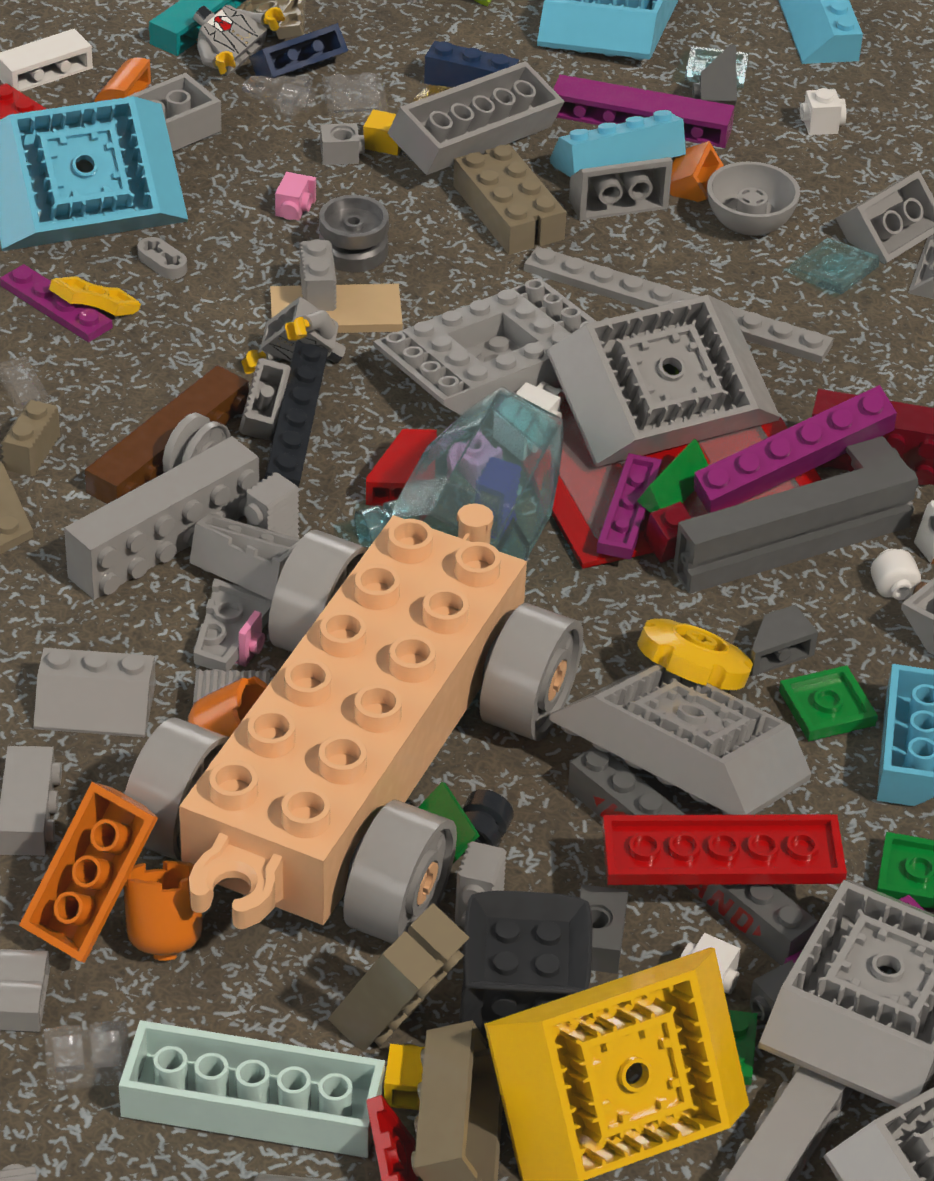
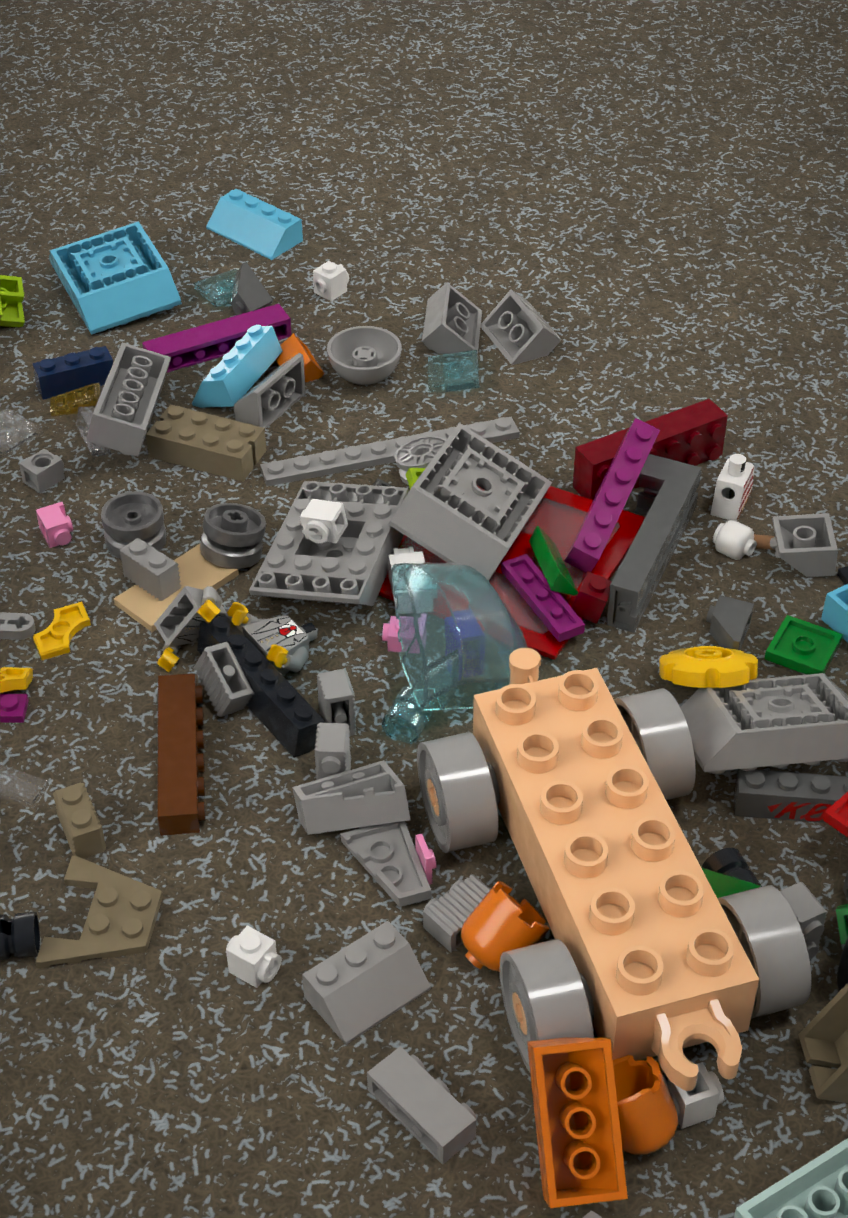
camera: 40 degrees left, 0 degrees up
(34, 617) = (253, 957): none -> white brick
(158, 518) = (260, 816): light grey brick -> none
(192, 437) = (223, 748): light grey wheel -> none
(212, 284) = (57, 636): none -> yellow tile
(225, 945) = (700, 1102): none -> white brick
(329, 476) = (336, 698): none -> light grey brick
(351, 398) = (276, 638): none -> light grey torso
(376, 131) = (66, 443): yellow brick -> none
(396, 465) = (372, 666): red slope -> none
(422, 286) = (232, 535): none -> flat silver wheel
(493, 316) = (323, 521): none -> white brick

